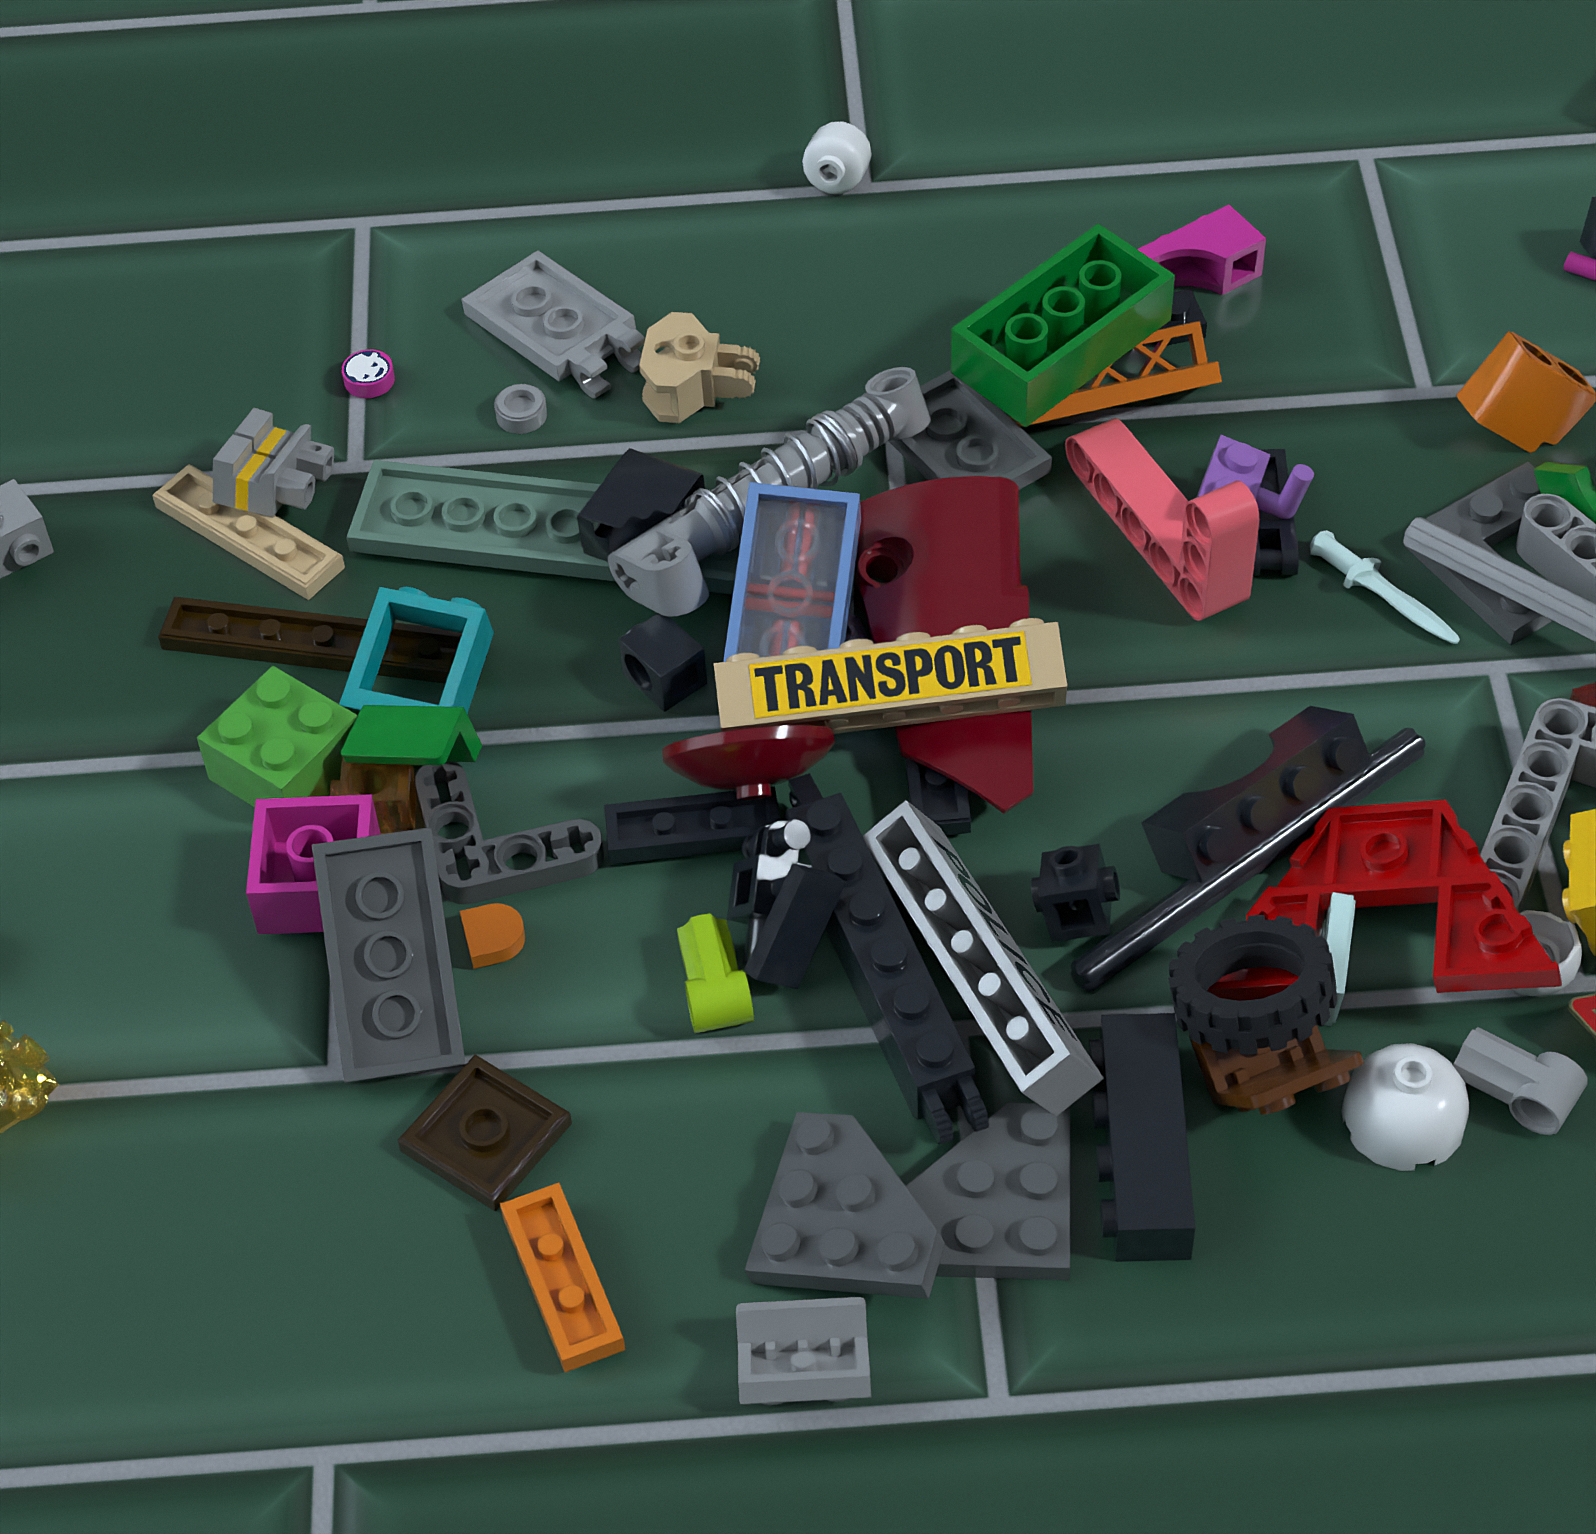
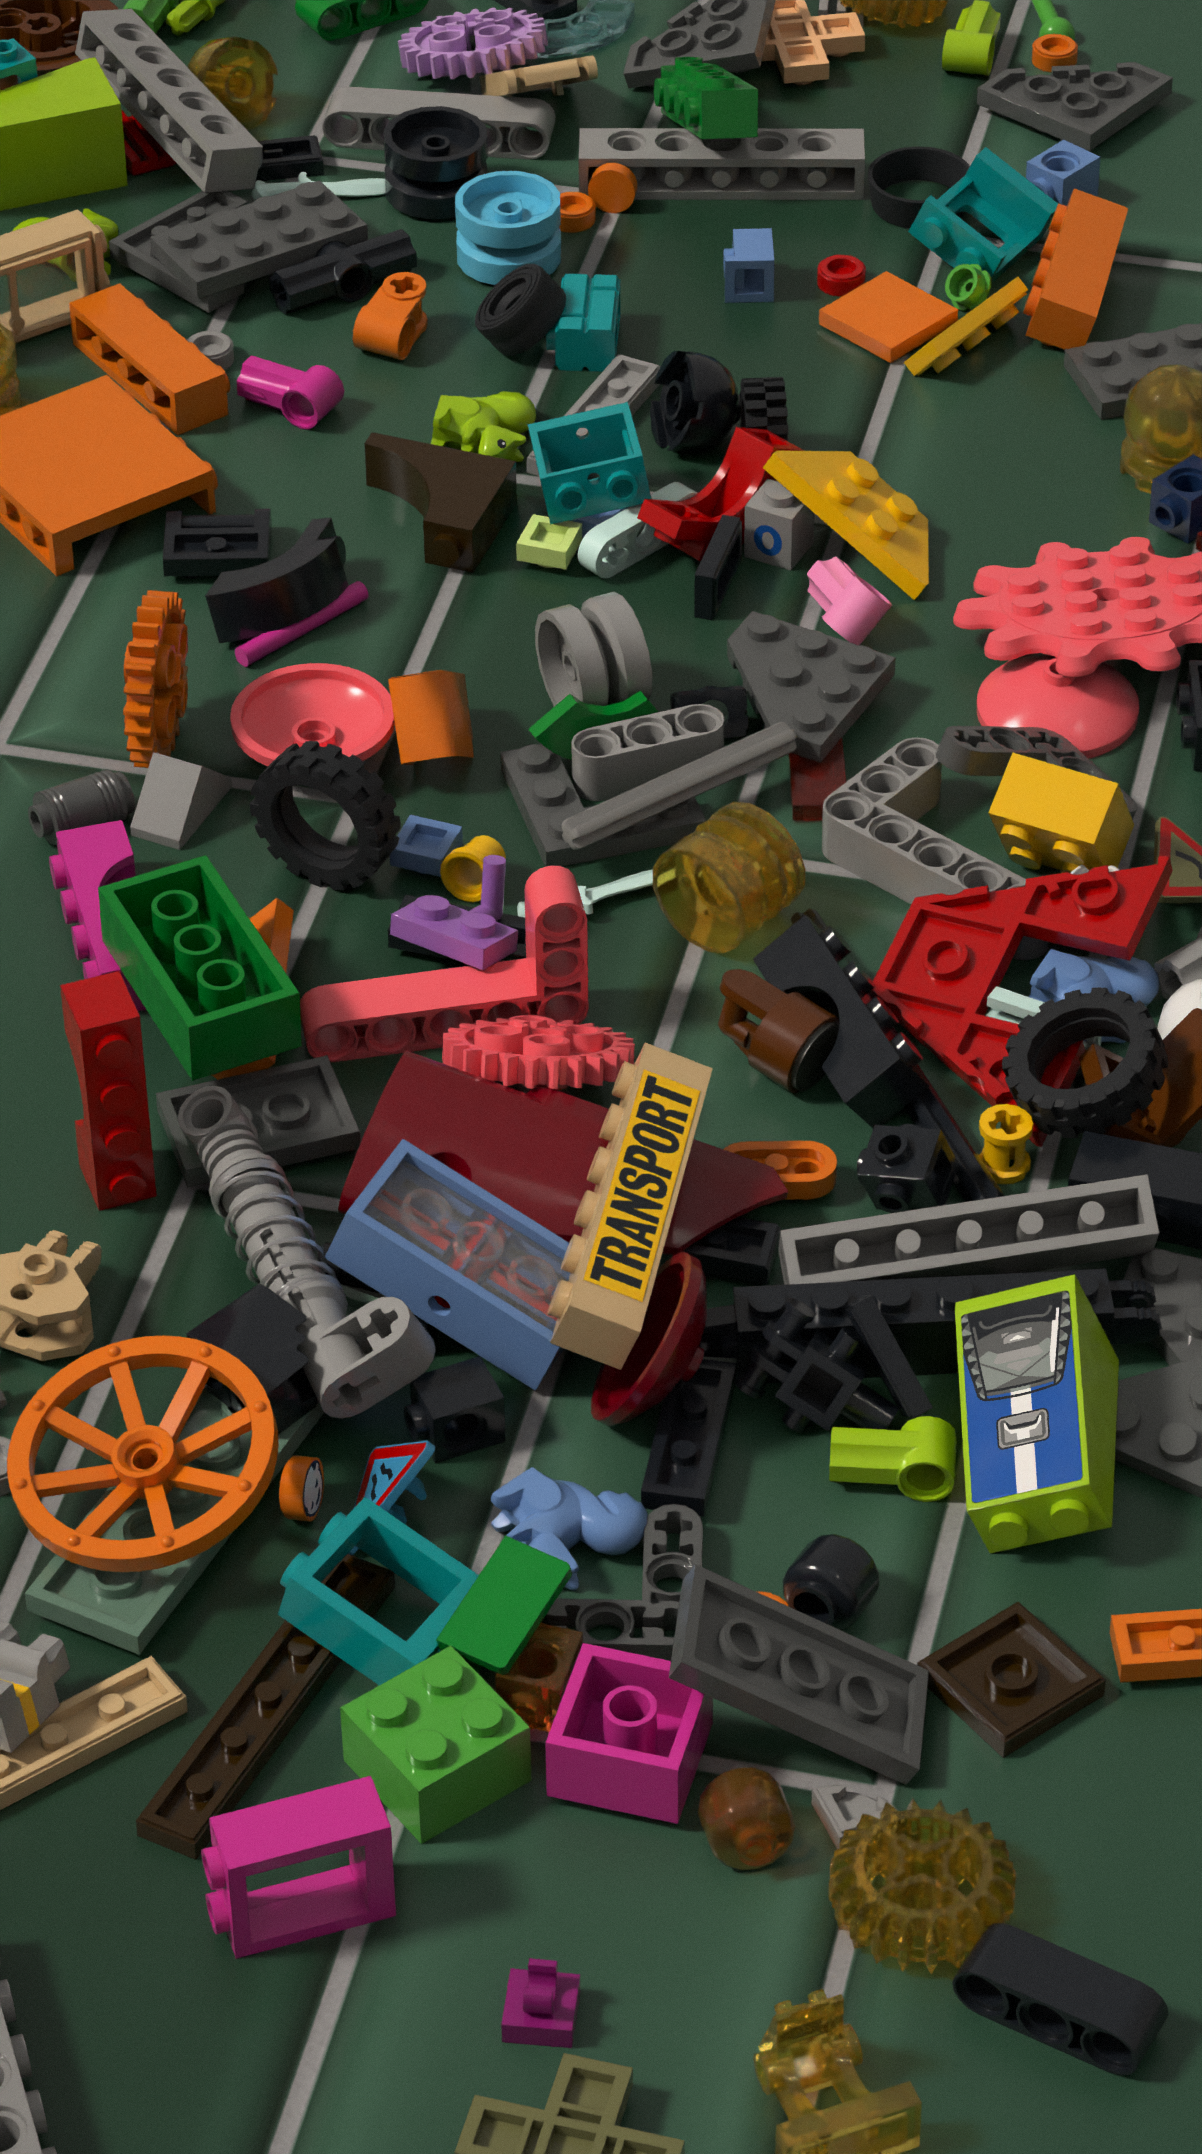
camera: 75 degrees left, 10 degrees down
(47, 895) = (541, 2005): none -> magenta tile
(108, 1245) = (1060, 1999): none -> black beam
(114, 693) = (293, 1832): none -> dark pink window
(212, 1134) = (920, 1907): none -> clear yellow gear
(256, 972) = (745, 1814): none -> clear orange head
(296, 1053) = (843, 1809): none -> light grey tile
(505, 474) = (145, 1457): none -> orange wheel
(535, 964) = (831, 1581): none -> black head
(542, 590) = (301, 1488): none -> orange tile
(555, 647) = (390, 1472): none -> dark azure piece
(562, 761) = (562, 1513): none -> medium blue animal
(759, 1059) = (1036, 1414): none -> slope
(866, 269) = (110, 1068): none -> red arch
(1057, 806) = (803, 1166): none -> orange plate
(1099, 586) = (538, 1052): none -> coral gear
(1153, 953) = (1006, 1143): none -> yellow bush
(1224, 749) = (792, 1034): none -> reddish brown piece
(1297, 219) = (81, 803): none -> dark grey head
(1324, 353) = (353, 789): none -> black tyre
(1349, 274) = (176, 800): none -> light grey slope
(1356, 487) = (463, 867): none -> yellow piece
(1368, 447) = (425, 844): none -> medium blue plate
(1405, 655) = (728, 877): none -> clear yellow wheel
(1408, 982) = (1066, 973): none -> medium blue animal
(1433, 191) = (155, 677): none -> orange gear
(1466, 307) = (312, 704): none -> coral dish

